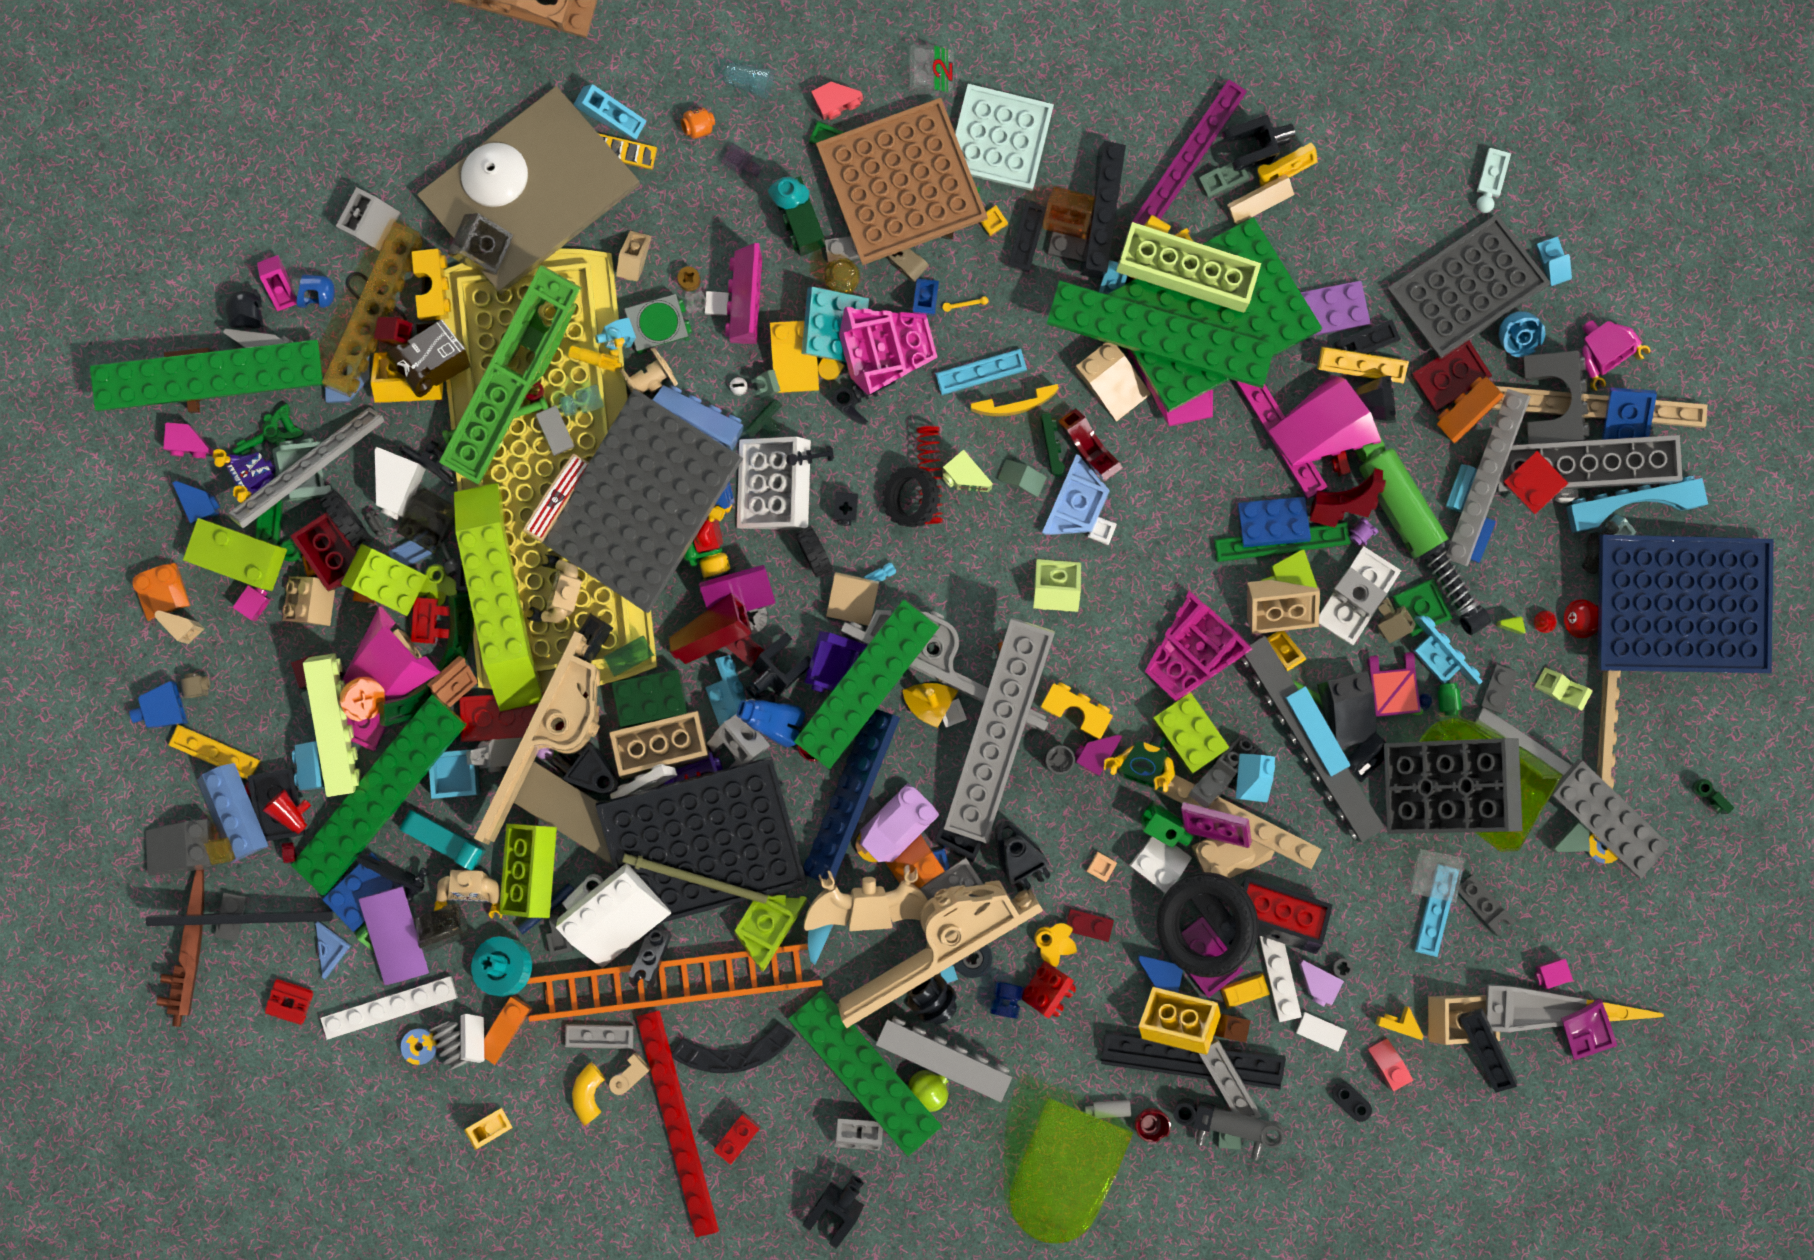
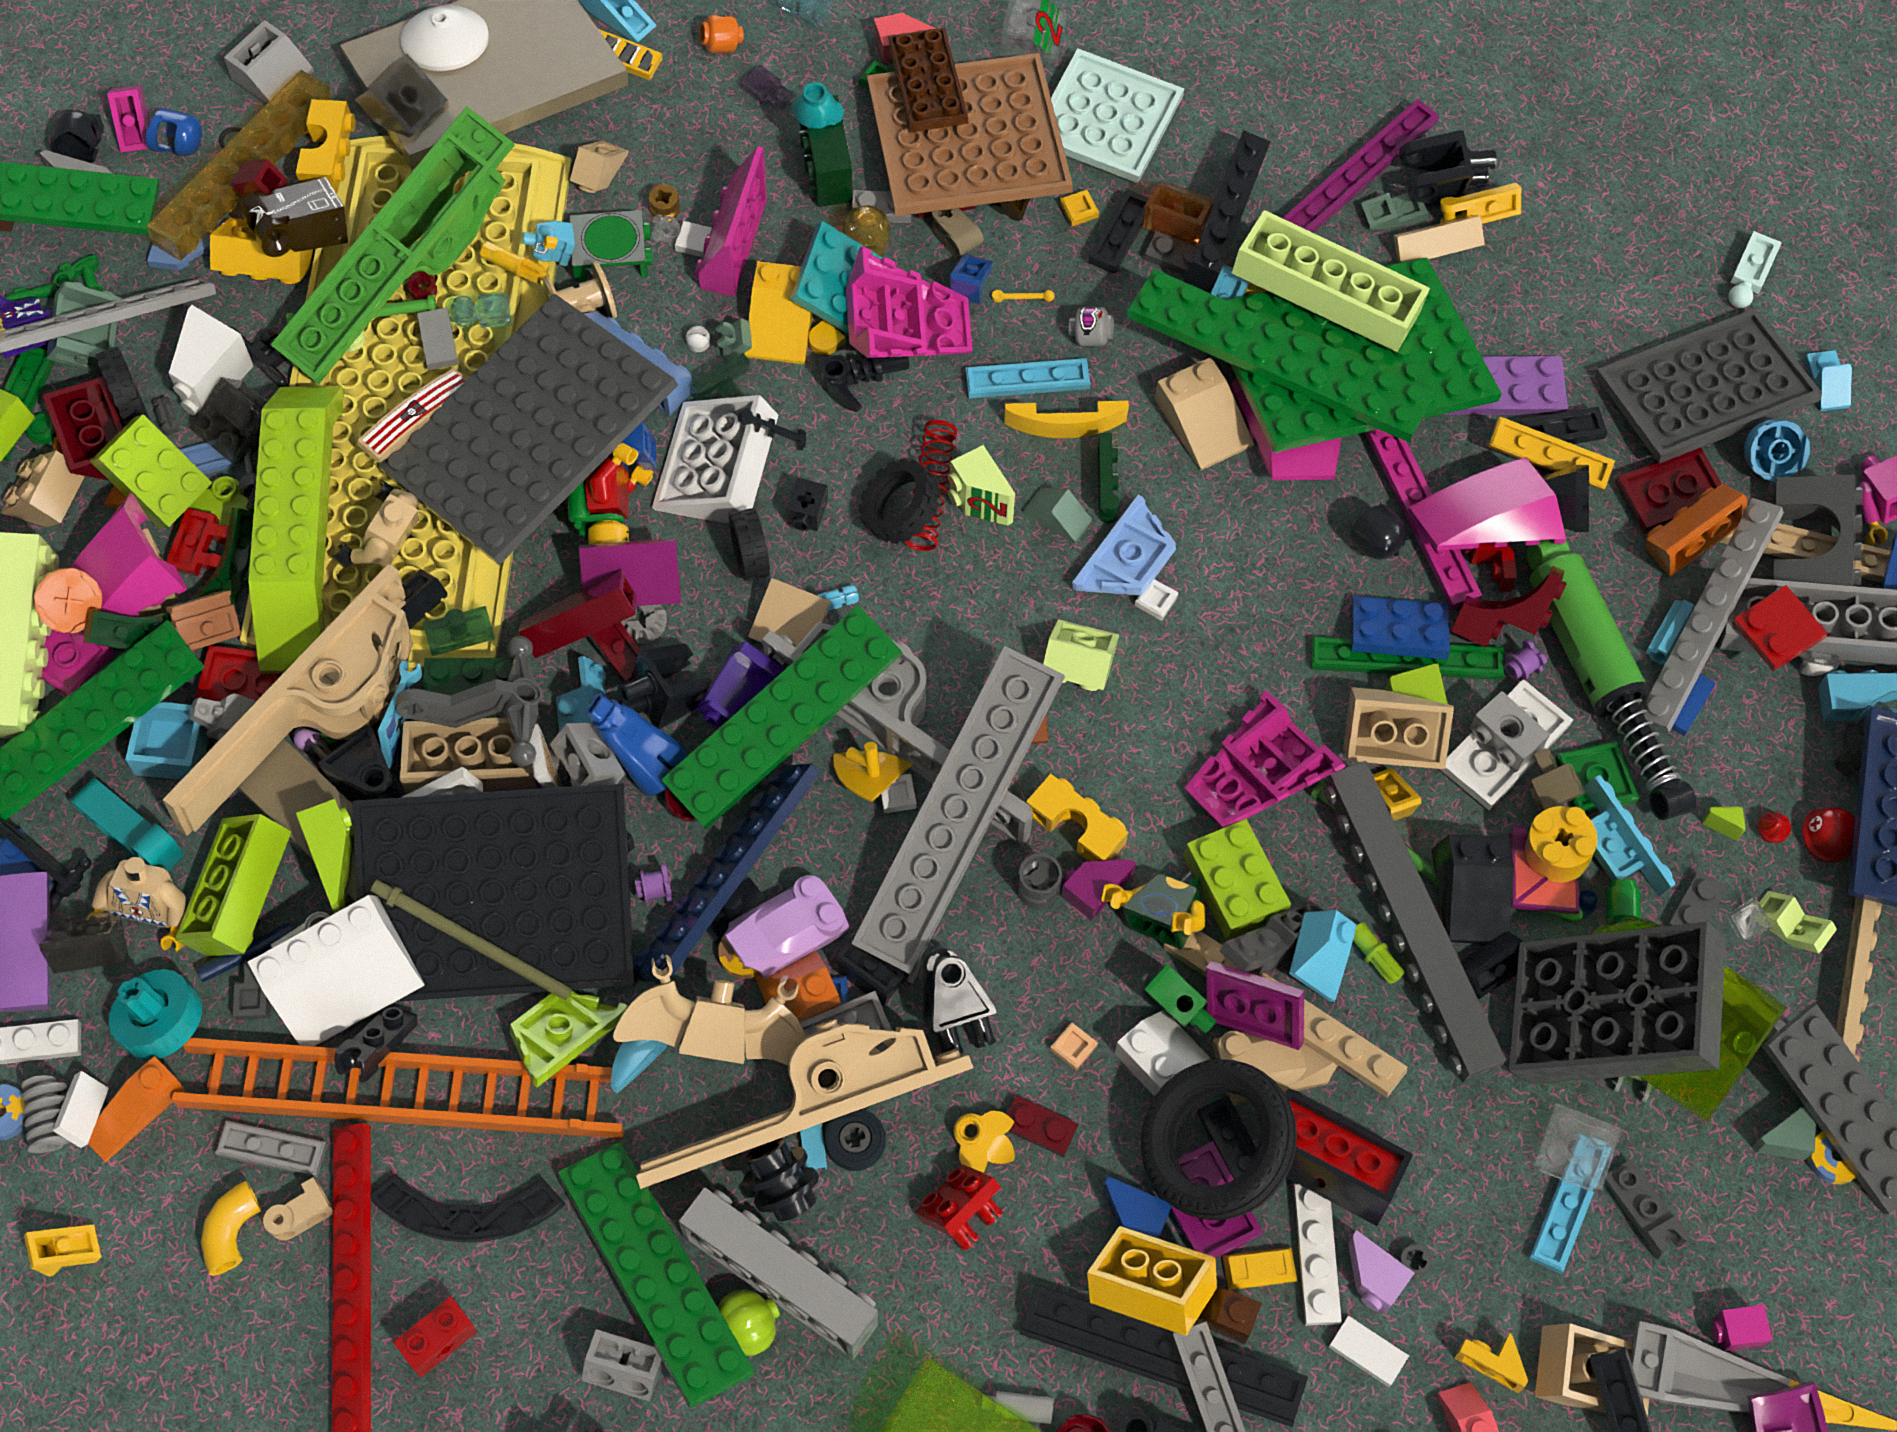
camera: 10 degrees right, 20 degrees down
(586, 837) = (328, 838): none -> lime slope
(606, 726) = (391, 727): none -> medium azure flag
(690, 719) = (515, 698): none -> dark grey piece
(714, 751) = (543, 766): none -> white tile
(803, 811) = (654, 885): none -> medium lavender brick
(862, 141) = (927, 80): none -> reddish brown tile
(1010, 992) = (899, 1196): clear blue wheel -> none
(1020, 323) = (1092, 326): none -> light grey head
(1088, 445) = (1154, 482): dark red arch -> none
(1250, 453) = (1379, 533): none -> black helmet
(1290, 765) = (1377, 954): none -> lime axle
(1317, 731) = (1424, 903): medium azure tile -> none
(1408, 658) = (1546, 839): none -> yellow brick
(1533, 694) = (1748, 920): none -> clear tile

